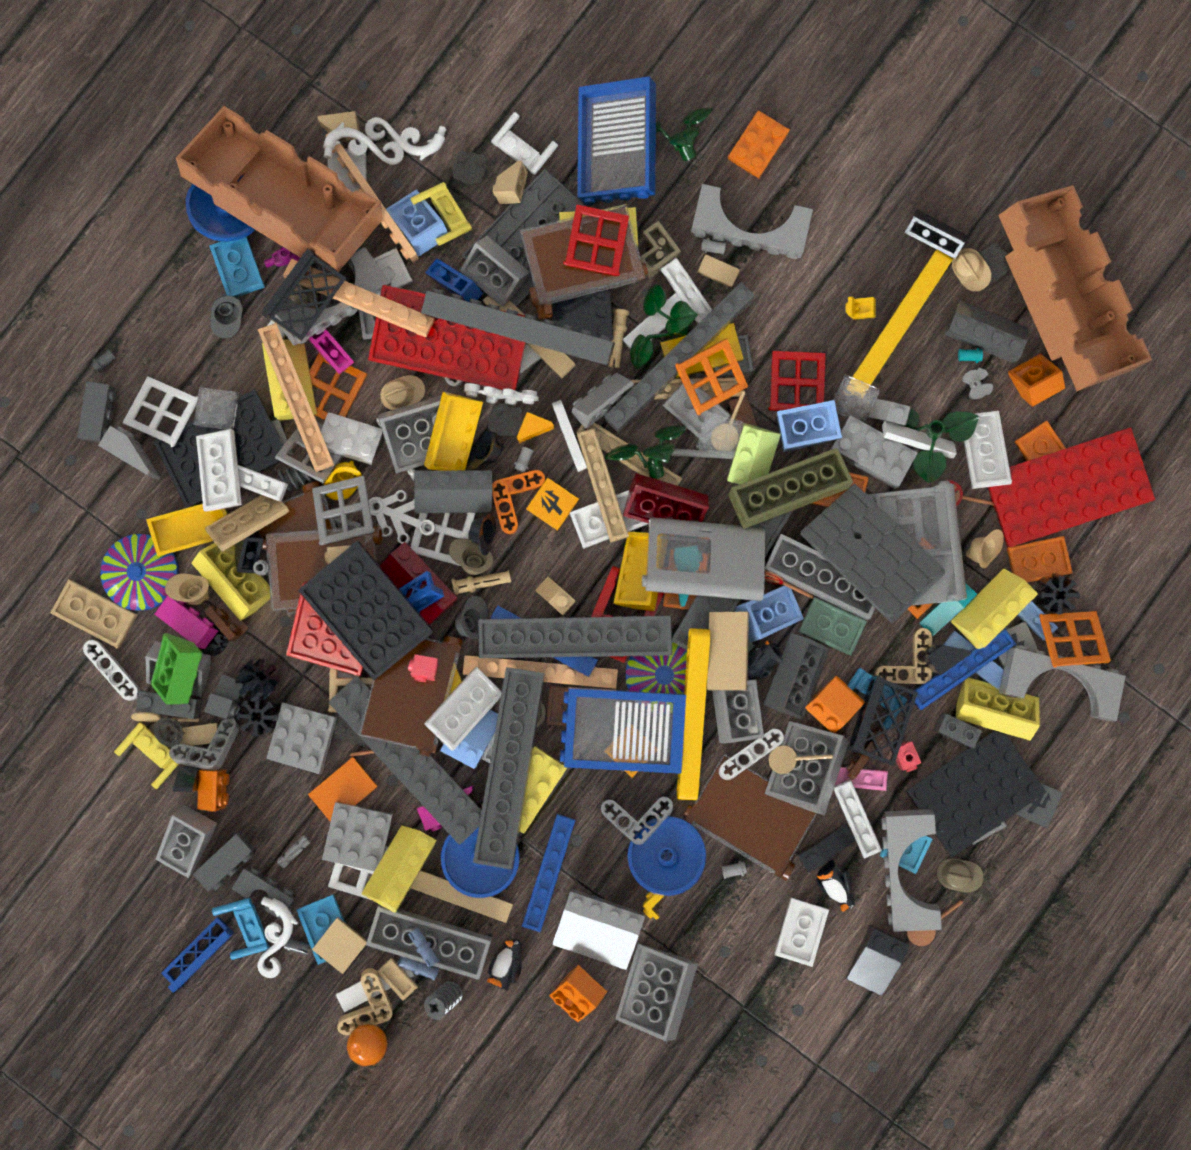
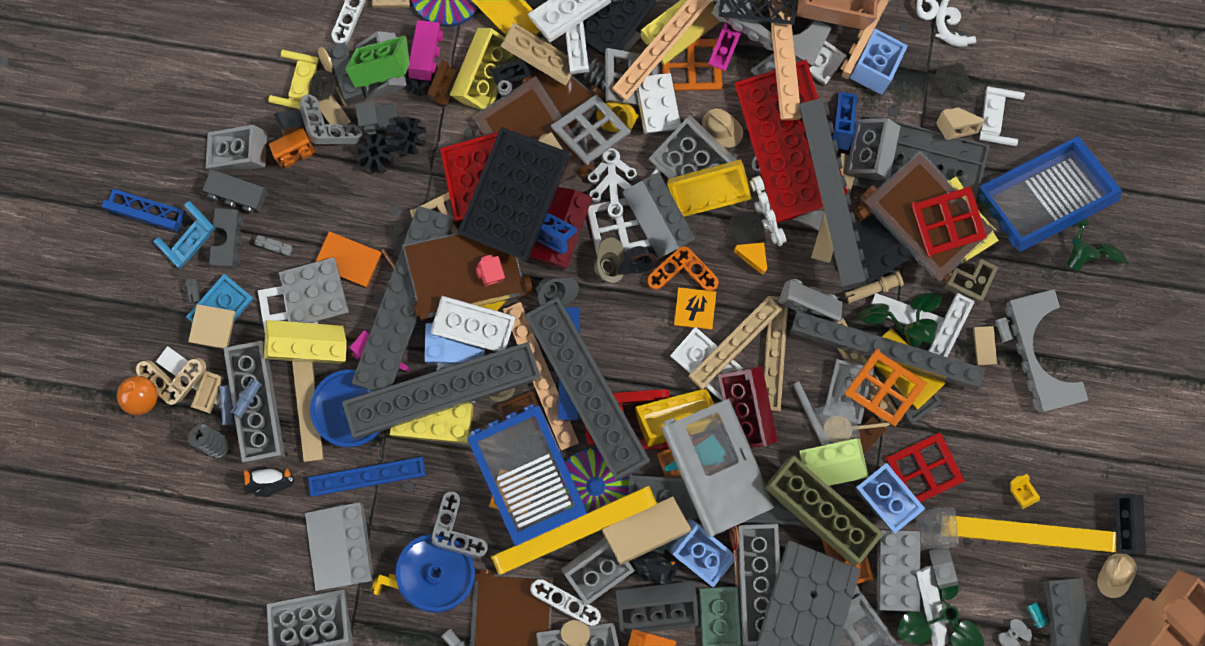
camera: 60 degrees right, 5 degrees down
(188, 588) = (453, 37): tan piece -> none
(271, 935) = (192, 262): white plant -> none
(301, 738) = (375, 200): light grey plate -> none
(448, 211) = (904, 81): light yellow plate -> none
(470, 586) = (587, 273): tan pin -> none
(485, 450) = (709, 224): black piece -> none
(523, 460) = (720, 262): light grey pin -> none
(555, 596) = (614, 354): tan slope -> none
(569, 435) = (763, 291): white beam -> none
(578, 994) = (272, 558): orange slope -> none
(656, 454) = (788, 373): dark green plant -> none
(758, 144) = (1120, 321): orange plate -> none

